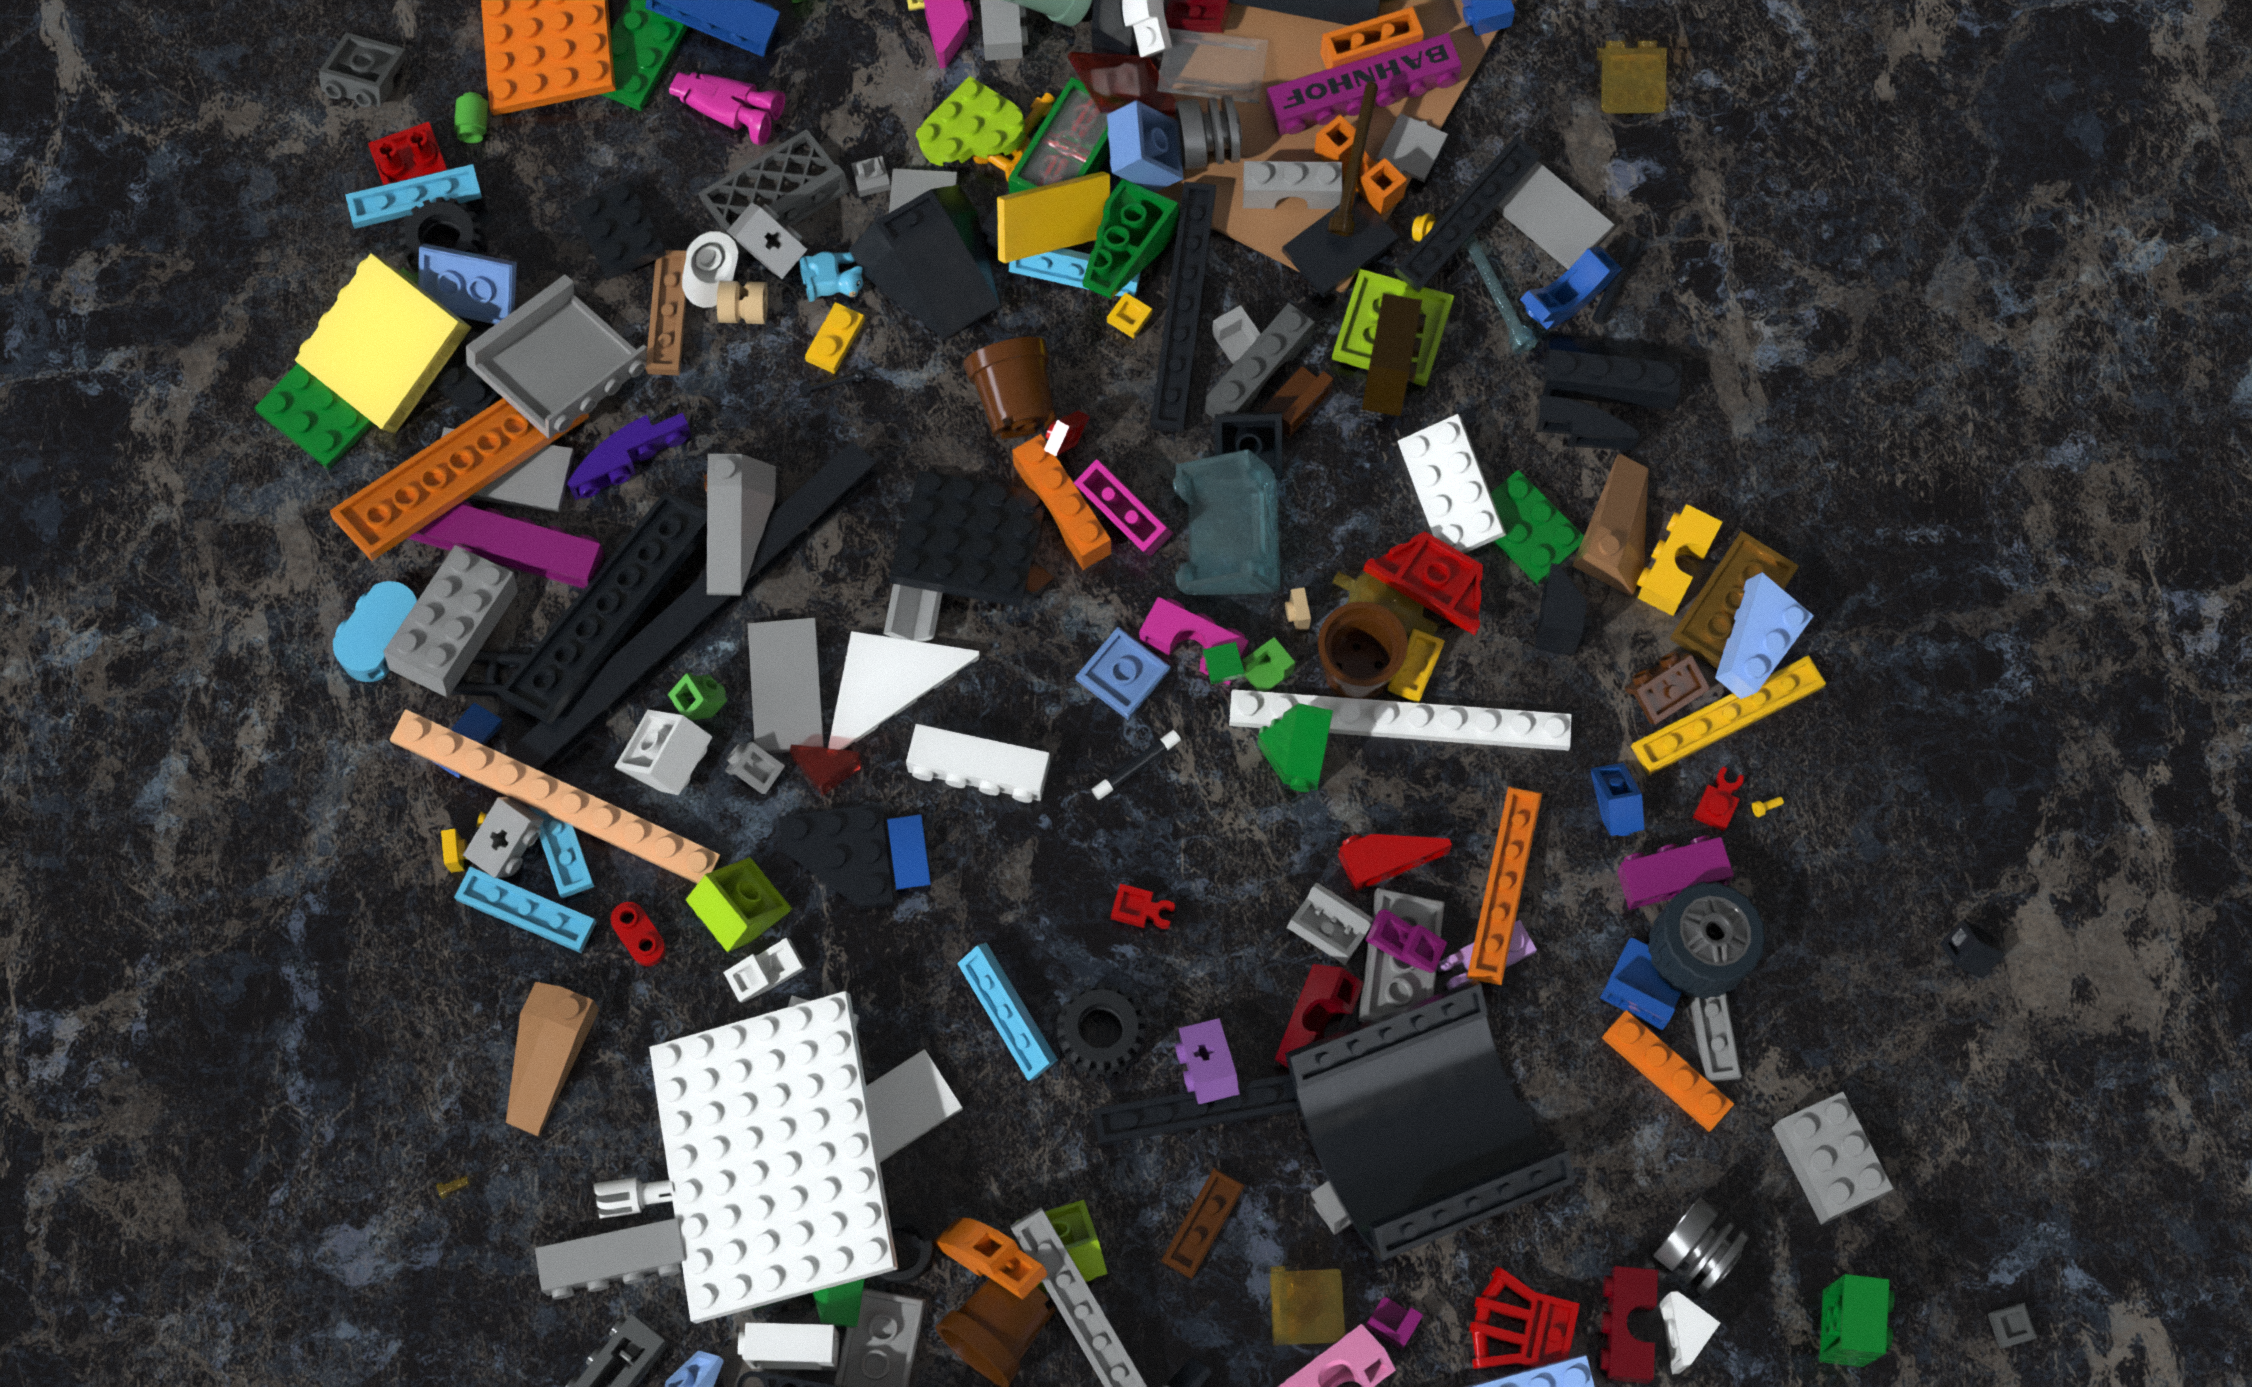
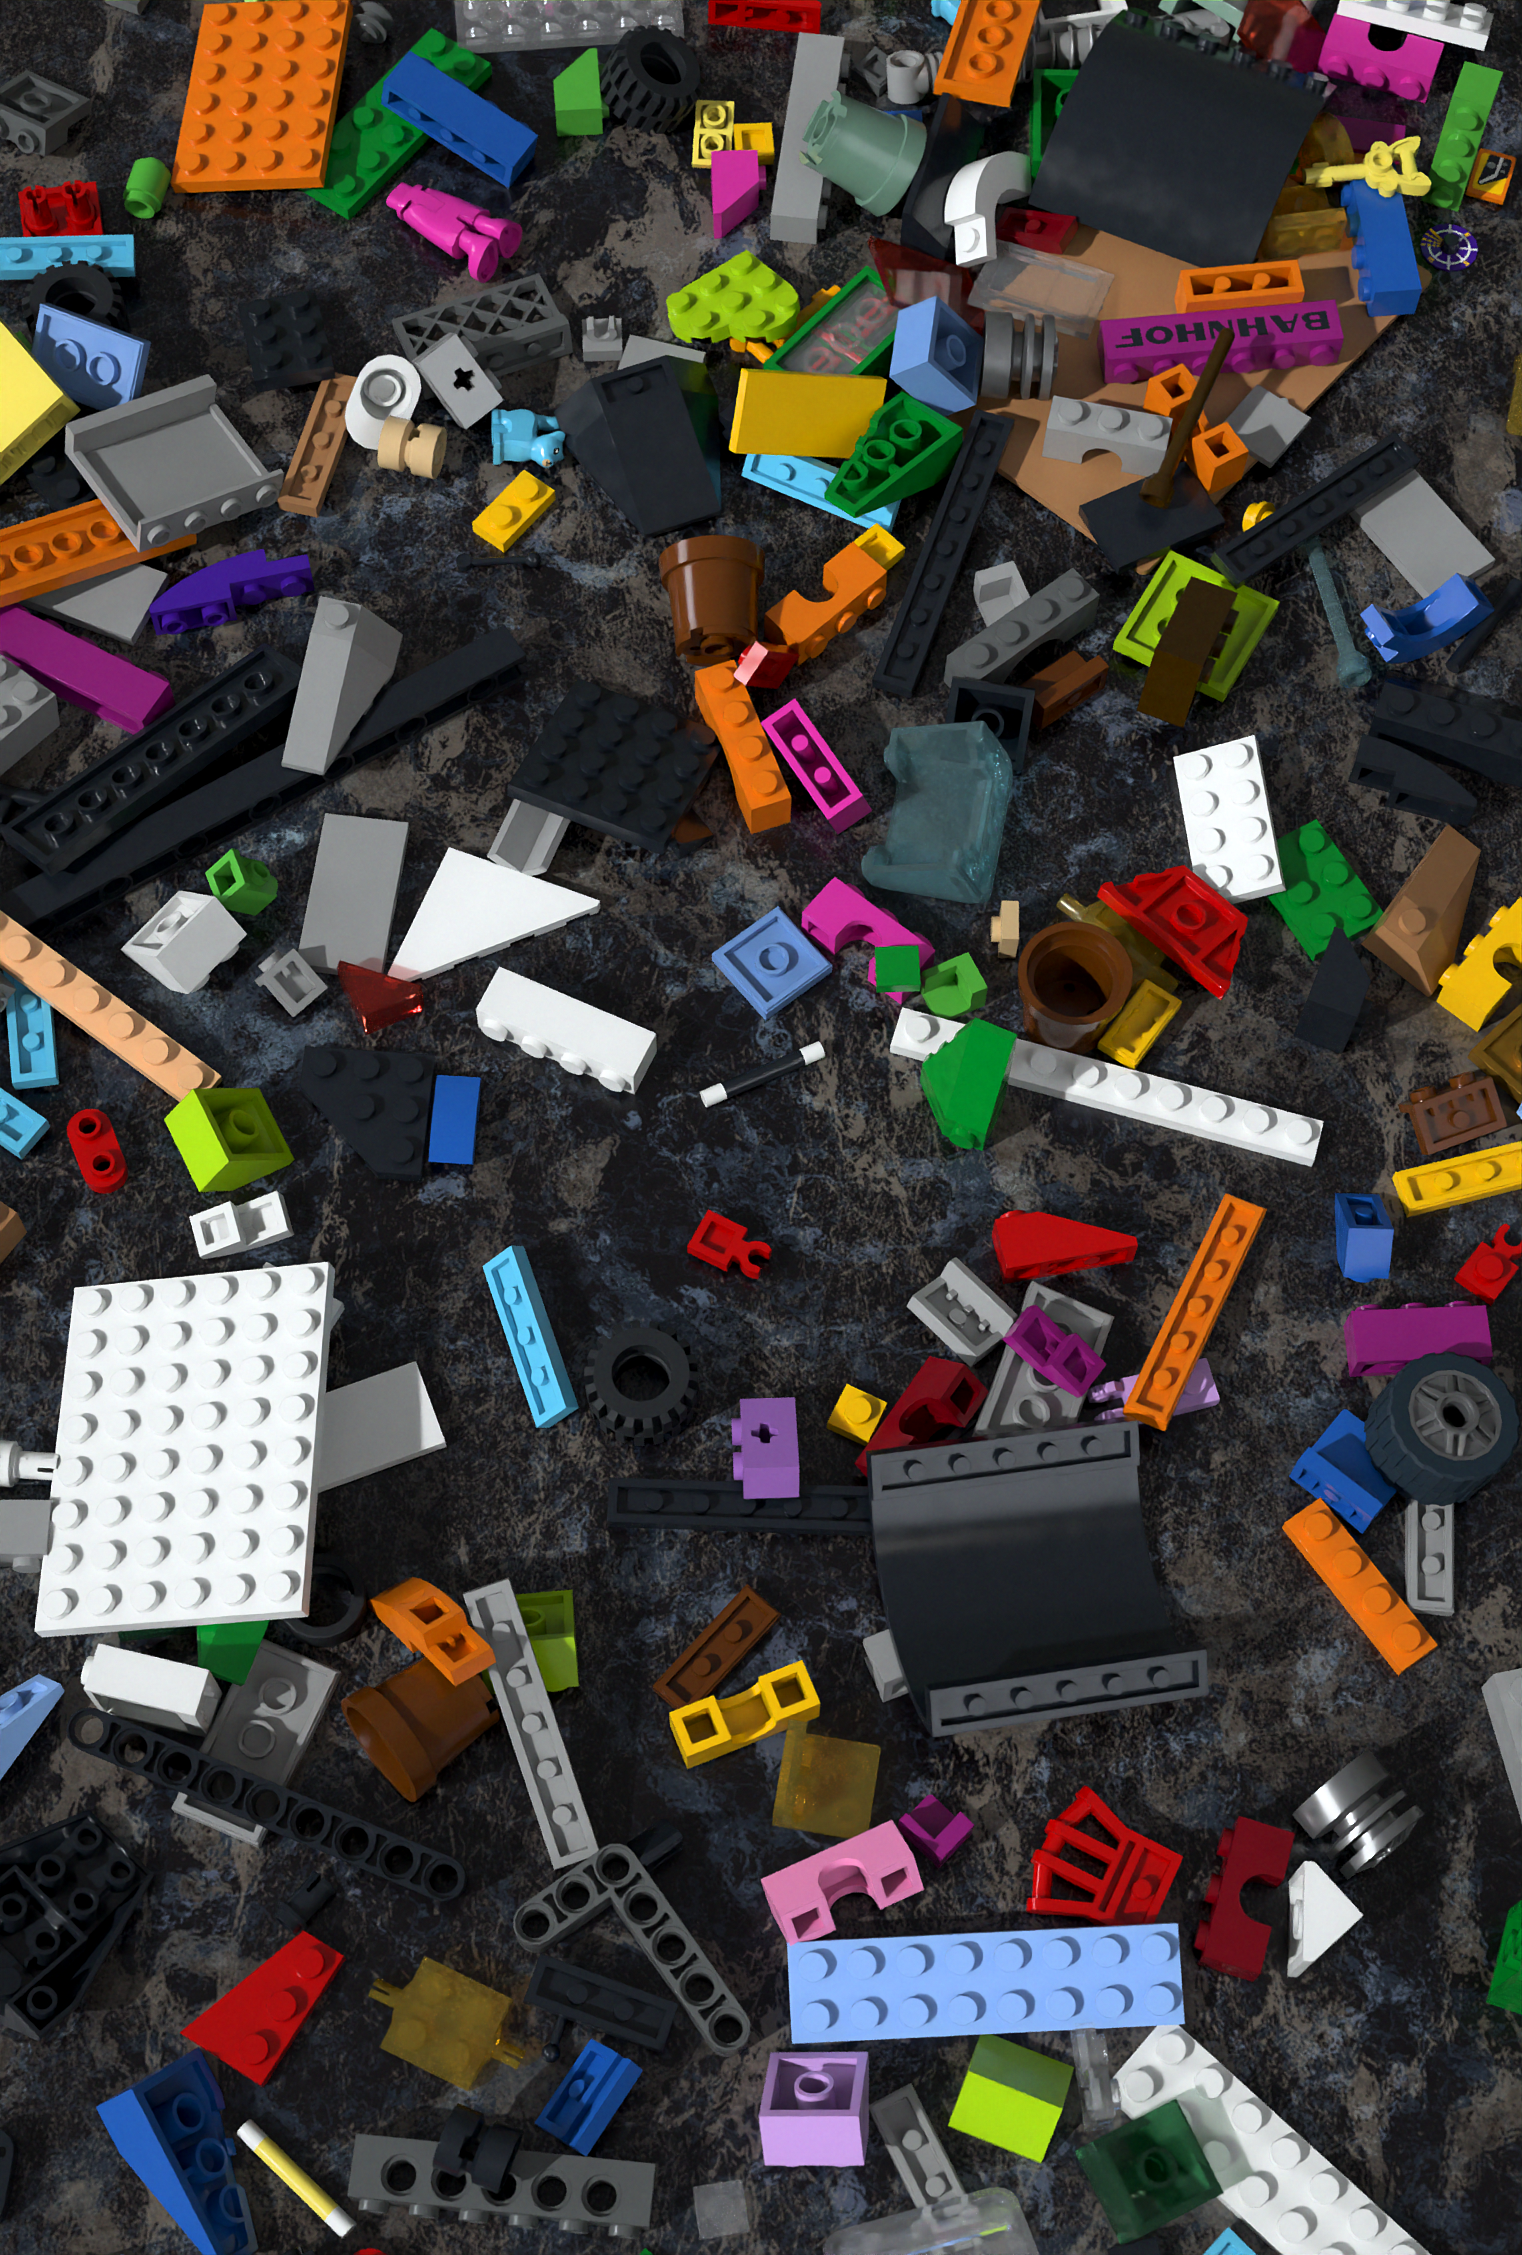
camera: 10 degrees right, 5 degrees down
(1088, 391) = (807, 626): none -> orange arch
(1236, 1269) = (724, 1725): none -> yellow arch
(1267, 1019) = (856, 1415): none -> yellow plate

